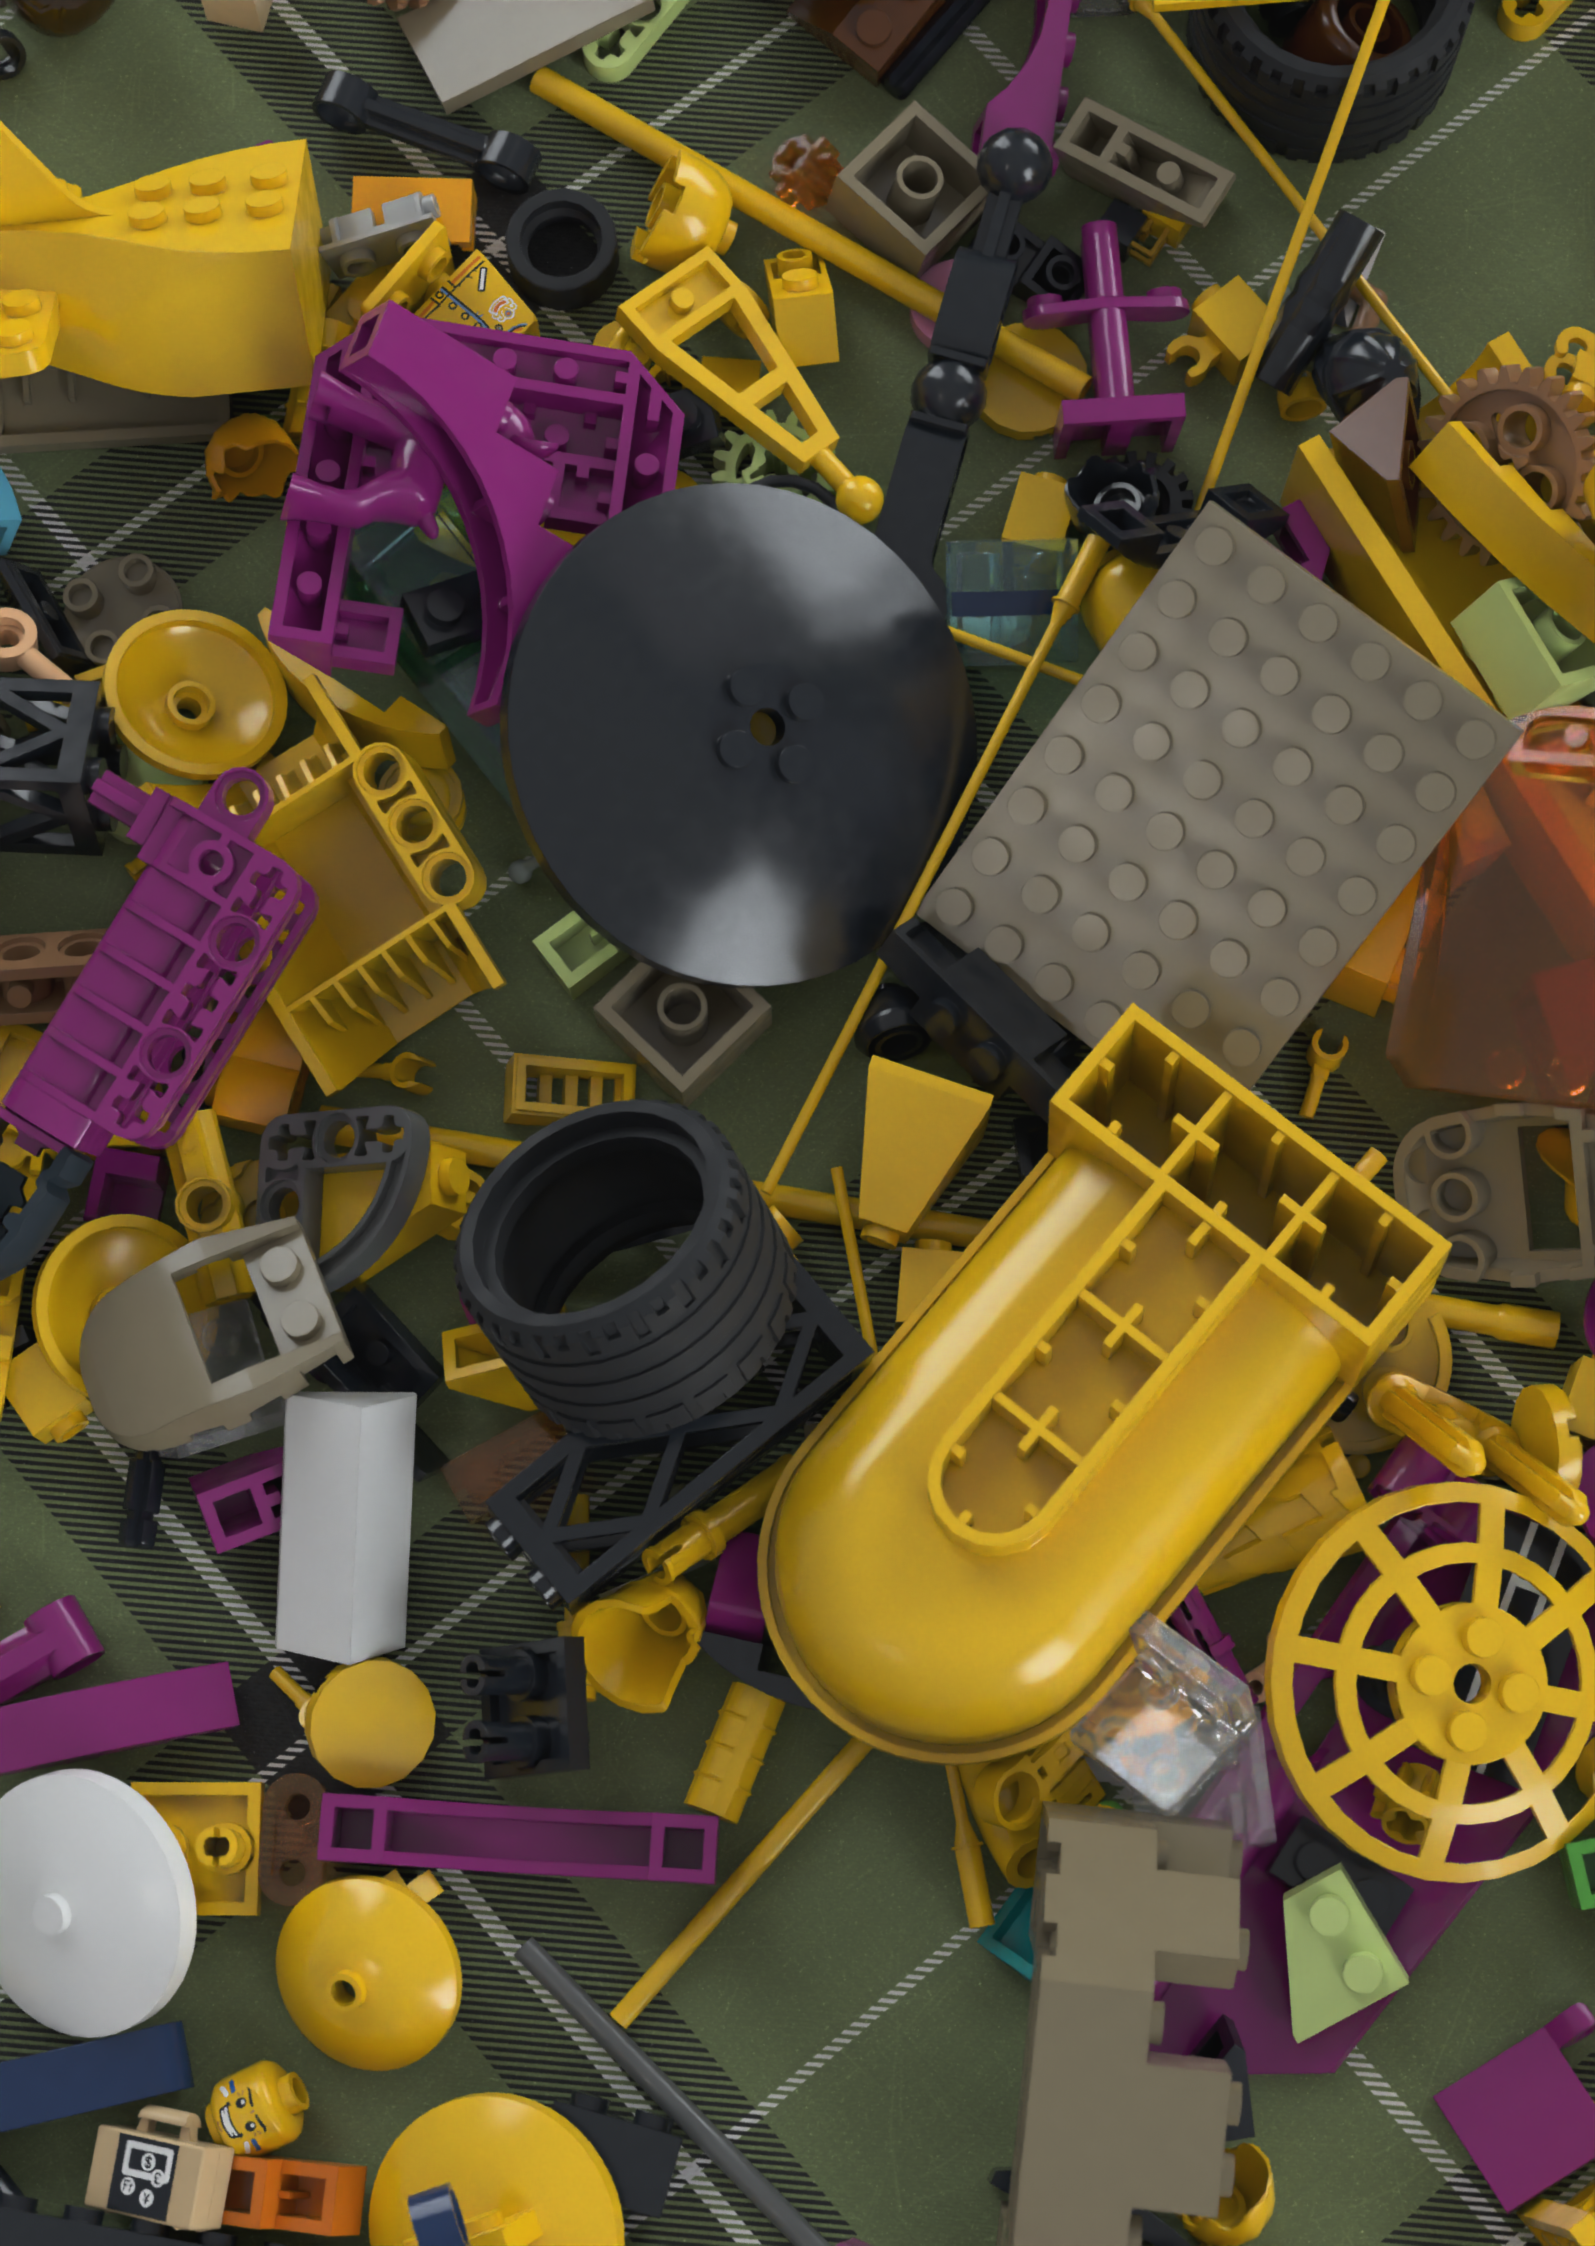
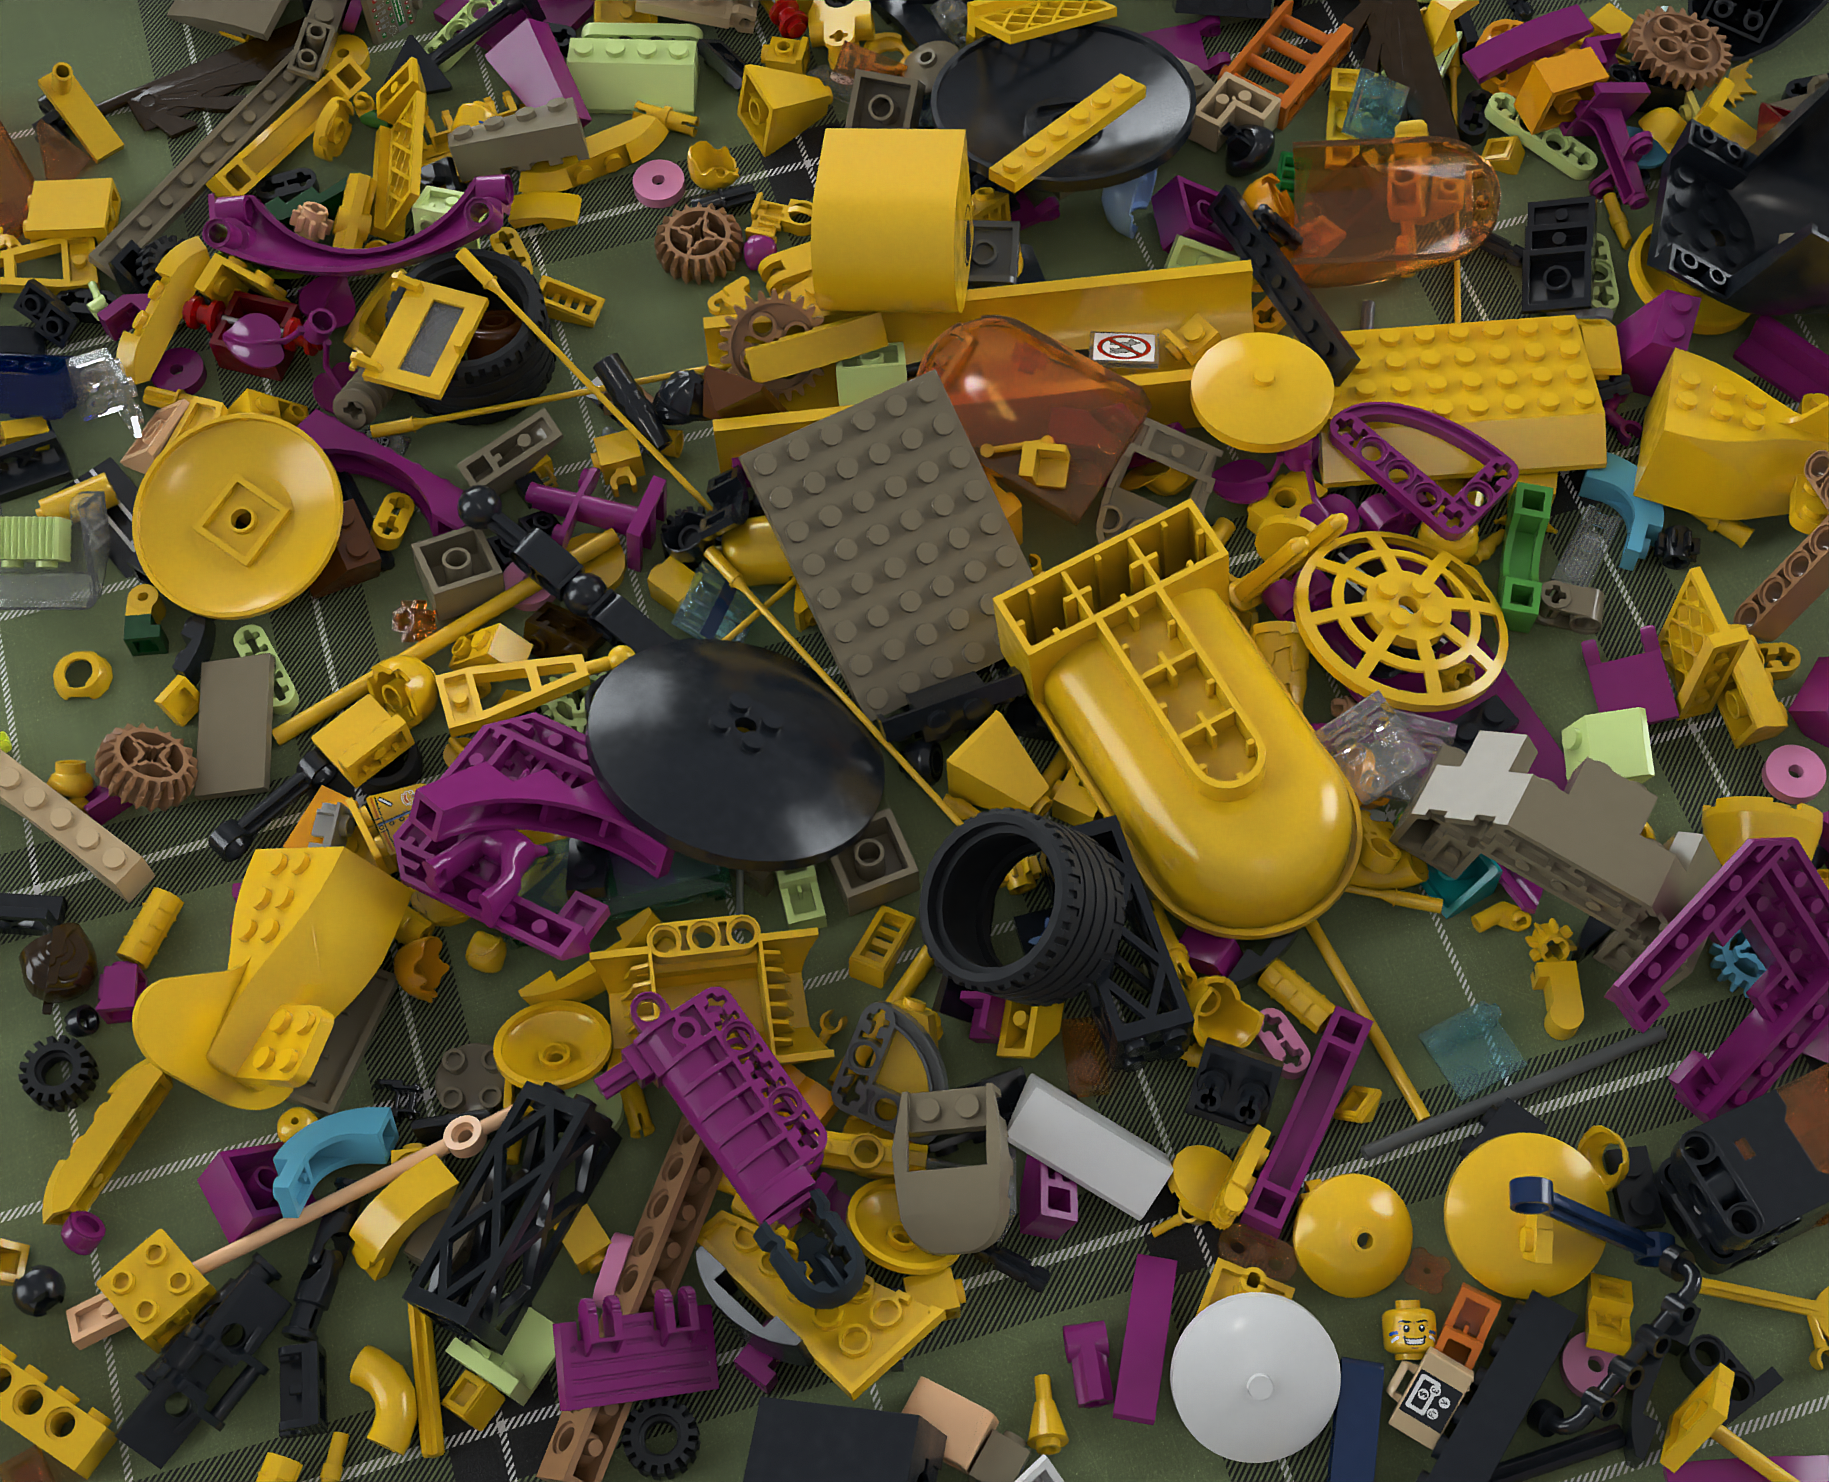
camera: 65 degrees left, 15 degrees down
(60, 82) = (119, 991): none -> magenta window
(73, 518) = (402, 1089): none -> black piece
(168, 67) = (150, 928): none -> yellow axle
(381, 2119) = (1427, 1282): none -> clear orange plate
(382, 1769) = (1239, 1180): none -> yellow hinge
(560, 198) = (363, 740): none -> yellow bracket
(592, 1909) = (1359, 1105): none -> yellow slope
(664, 1764) = (1288, 1038): none -> bright pink beam
(762, 2058) = (1473, 1049): none -> clear light blue hinge
(845, 1121) = (961, 807): none -> yellow piece
(875, 393) = (560, 633): none -> dark brown bracket
(881, 2186) = (1562, 997): none -> yellow leg
(965, 42) = (398, 523): none -> yellow beam
(985, 2124) = (1545, 933): none -> yellow gear
(1012, 2020) = (1502, 915): none -> yellow arm
(1334, 1953) = (1534, 724): yellowish green wing -> none
(1367, 2111) = (1613, 738): none -> yellowish green slope
(1467, 887) = (988, 450): none -> yellow hinge
(1472, 986) = (1045, 464): none -> yellow panel
(1506, 73) = (560, 290): none -> yellow slope

